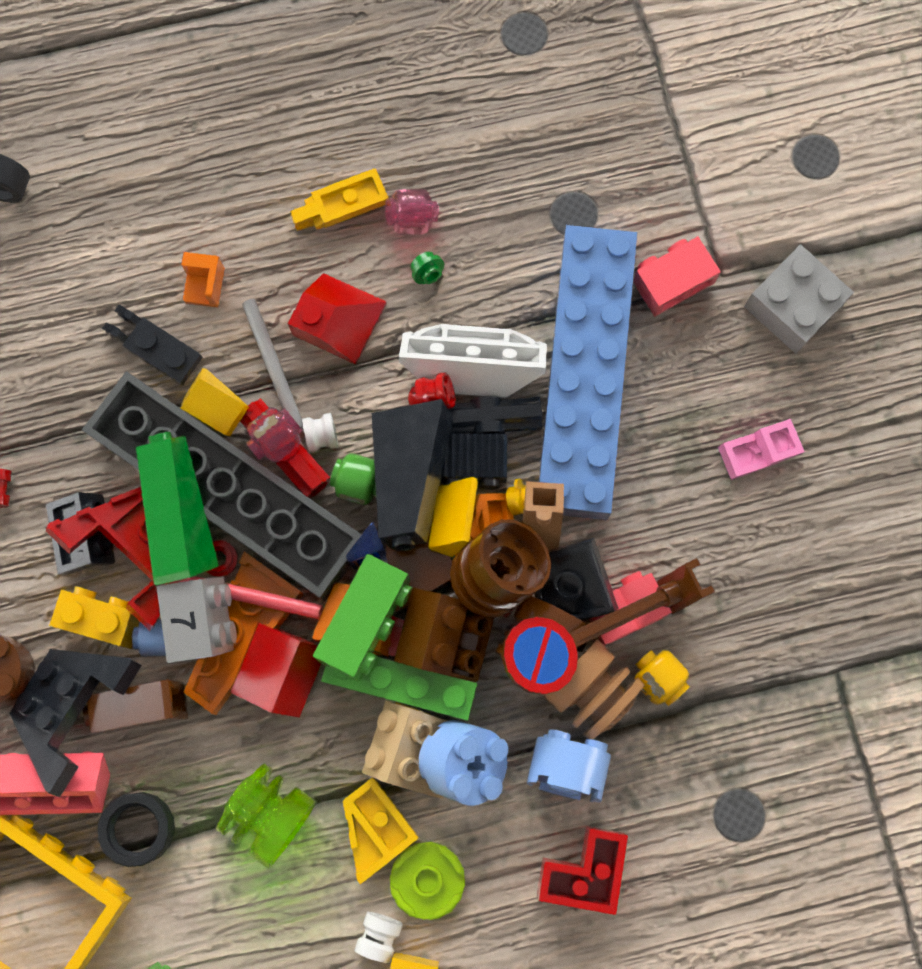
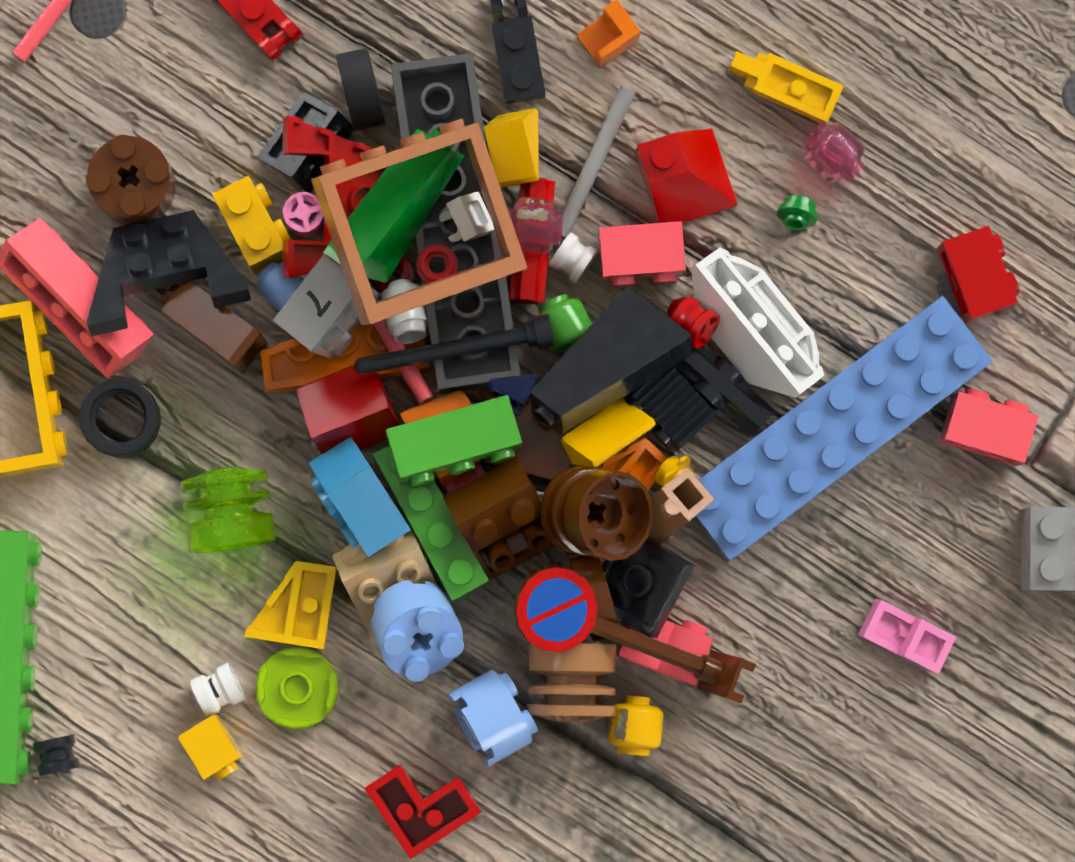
camera: 35 degrees right, 5 degrees up
(79, 464) = (360, 89): none -> black tyre
(117, 575) = (302, 206): none -> bright pink wheel
(142, 458) = (345, 246): none -> nougat window
(227, 469) = (469, 216): none -> white tile
(228, 516) = (436, 252): none -> red plate
(249, 571) = (410, 325): none -> white brick
(340, 719) = (356, 498): none -> dark azure brick
(343, 500) = (535, 333): none -> black piece
(359, 386) = (641, 253): none -> coral brick
(571, 194) = (978, 274): none -> red brick

